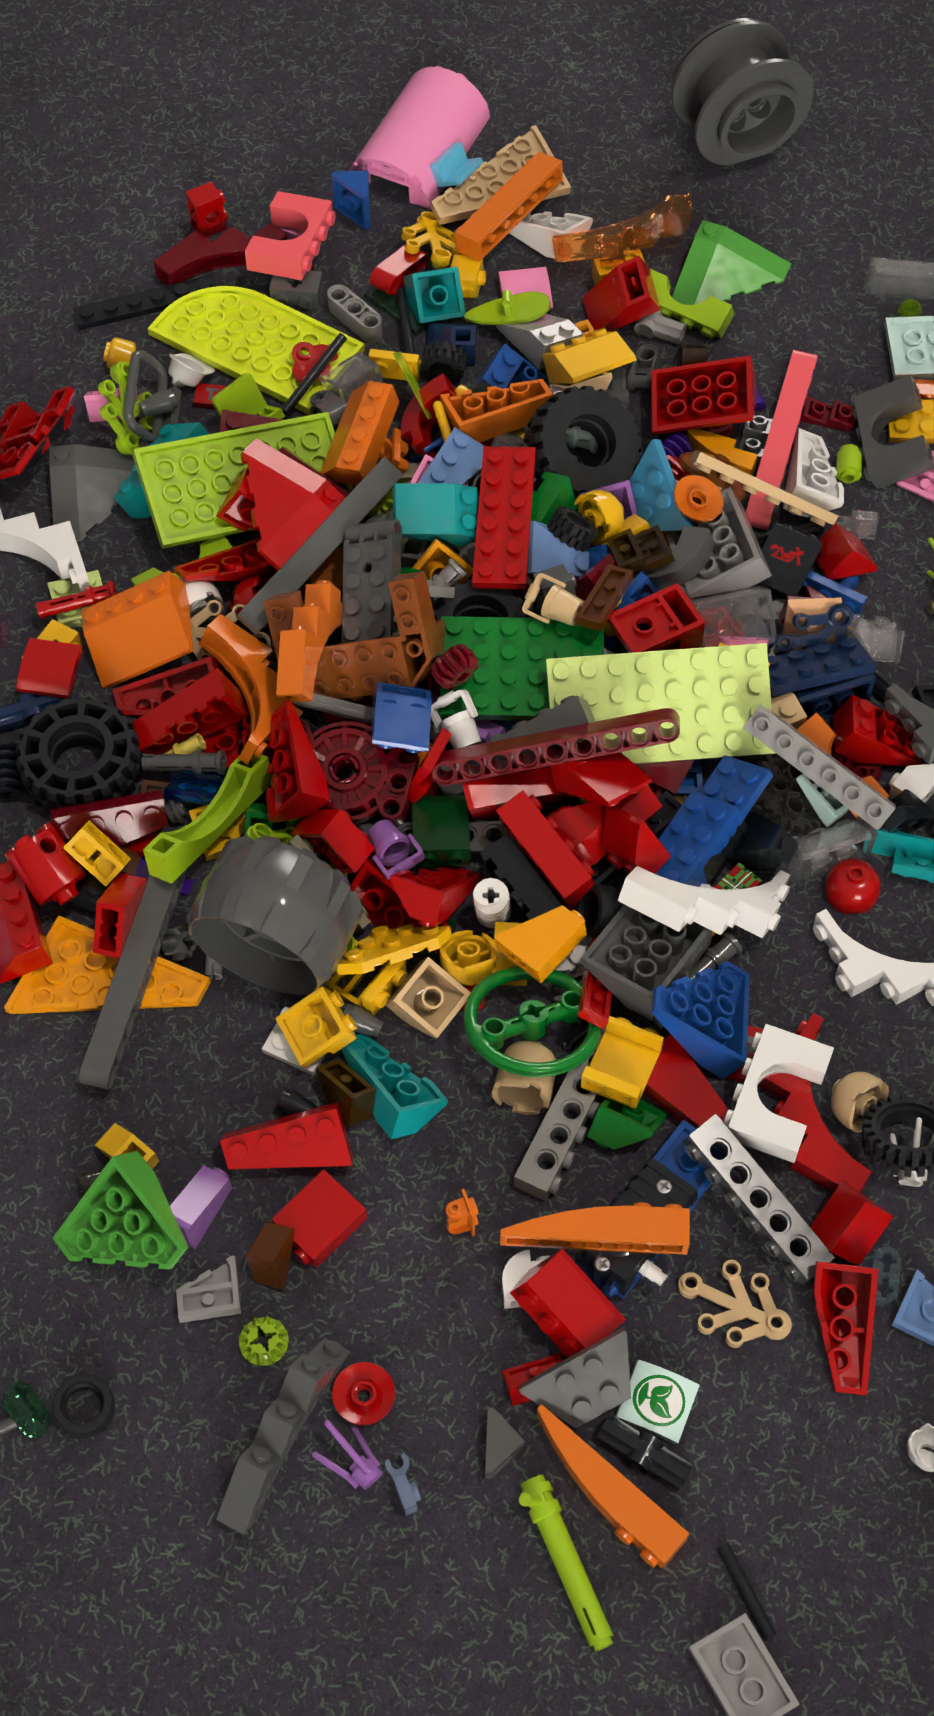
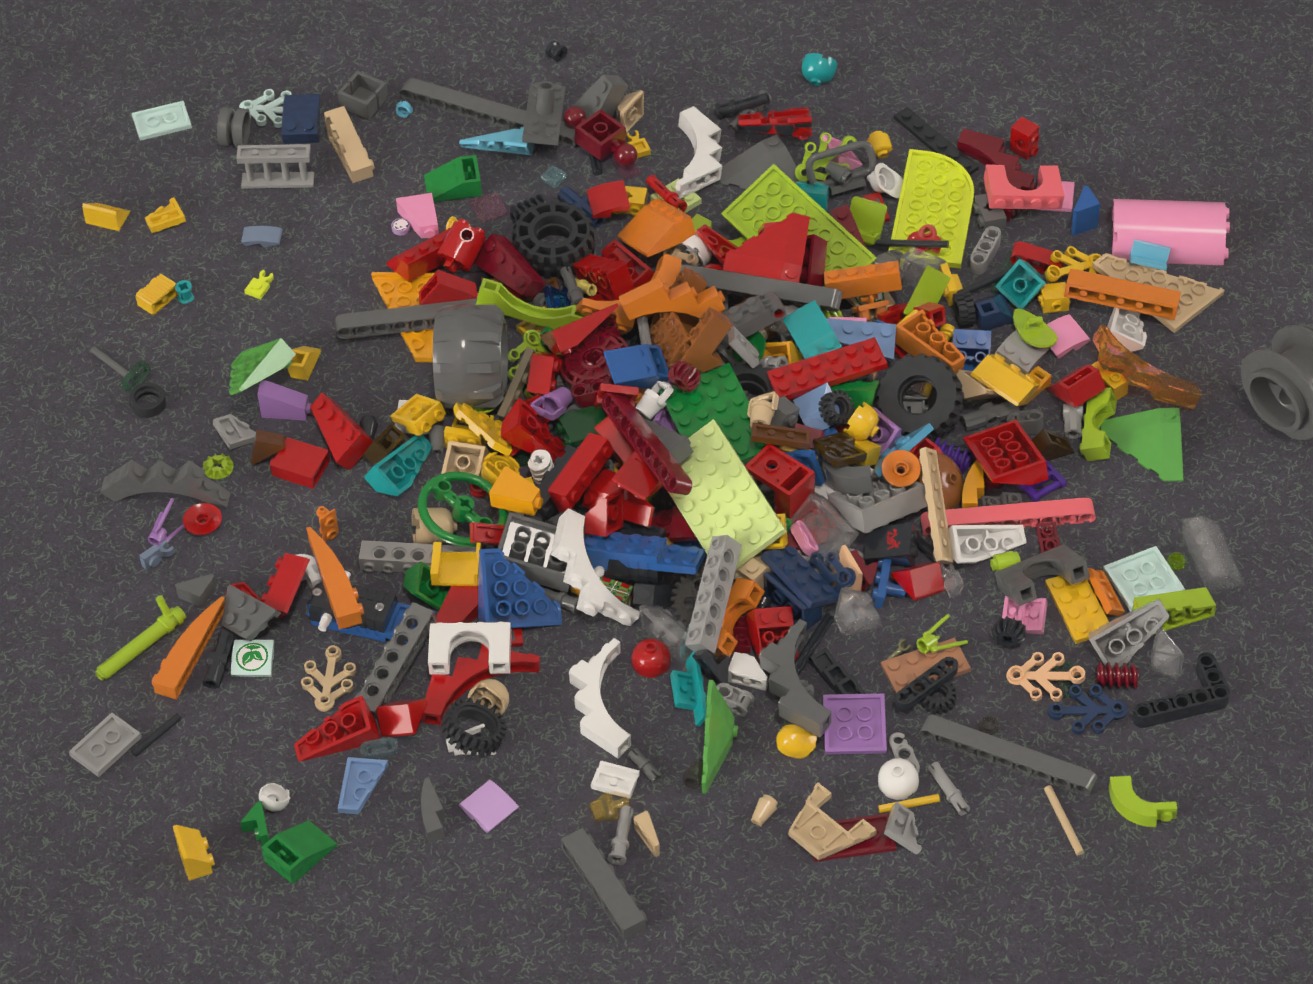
camera: 70 degrees right, 10 degrees down
(97, 853) = (479, 263): yellow brick -> none

